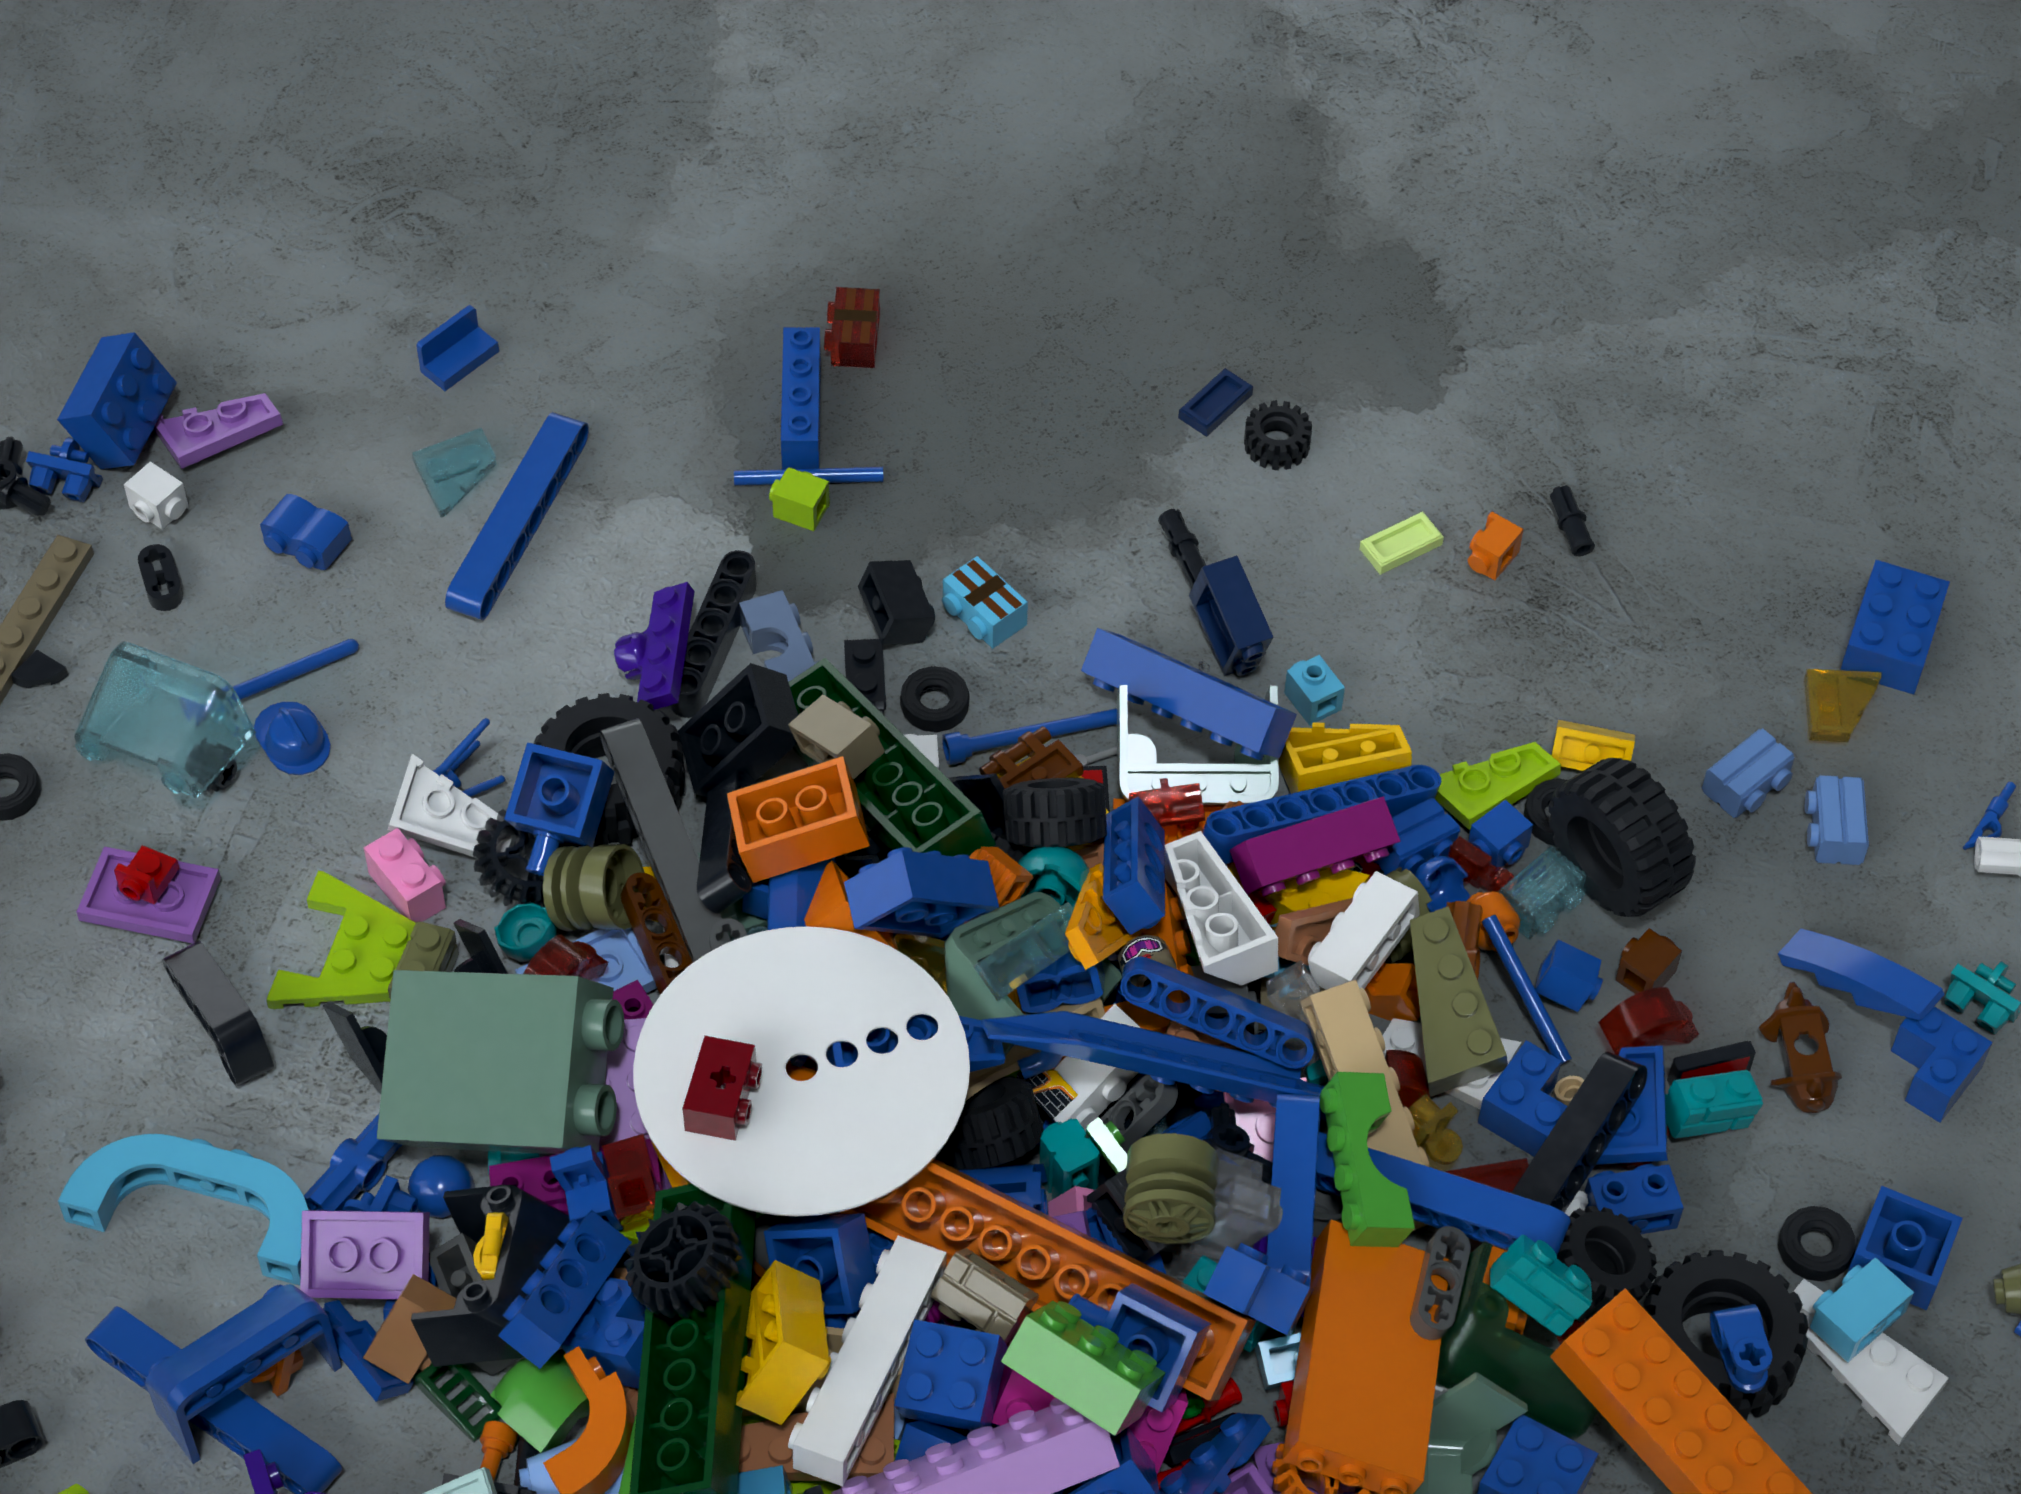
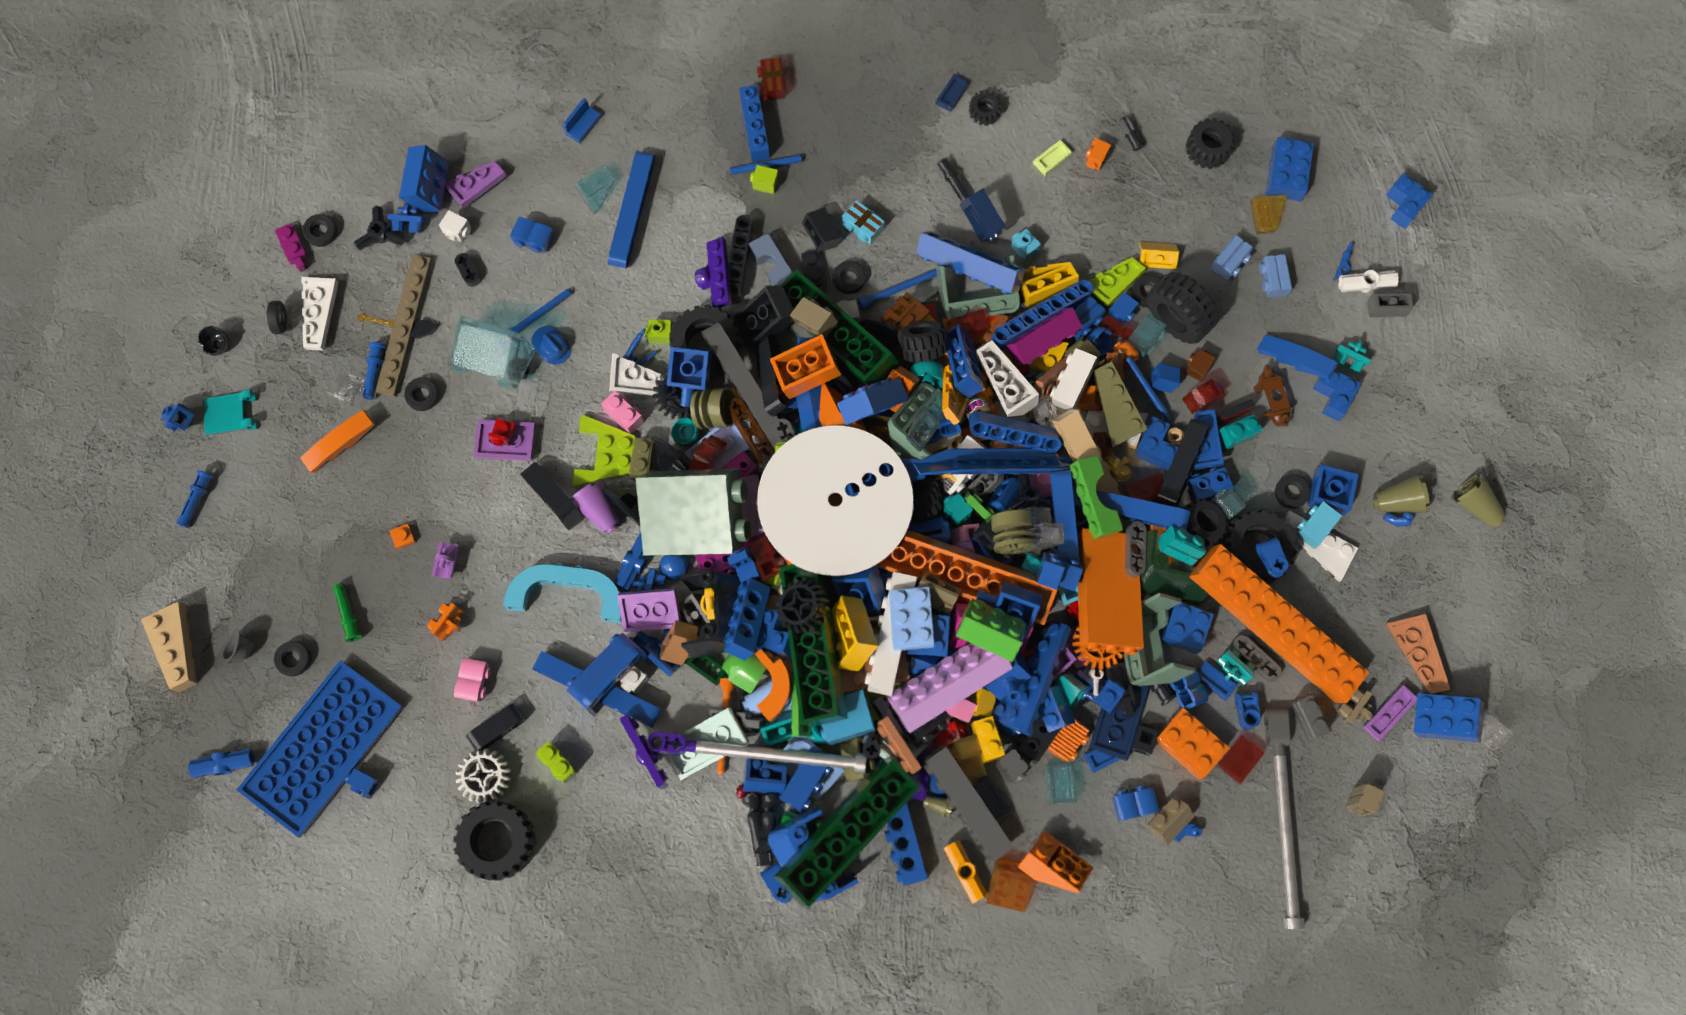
camera: 10 degrees left, 20 degrees up
(296, 1394) = (633, 680): none -> white brick
(304, 1041) = (596, 506): none -> medium lavender cone
(511, 736) = (658, 331): none -> lime brick
(721, 1088) = (802, 507): dark red brick -> none
(915, 1326) = (911, 618): none -> light blue plate
(1667, 1230) = (1230, 503): none -> clear light blue brick
(1737, 535) = (1214, 131): none -> black tyre

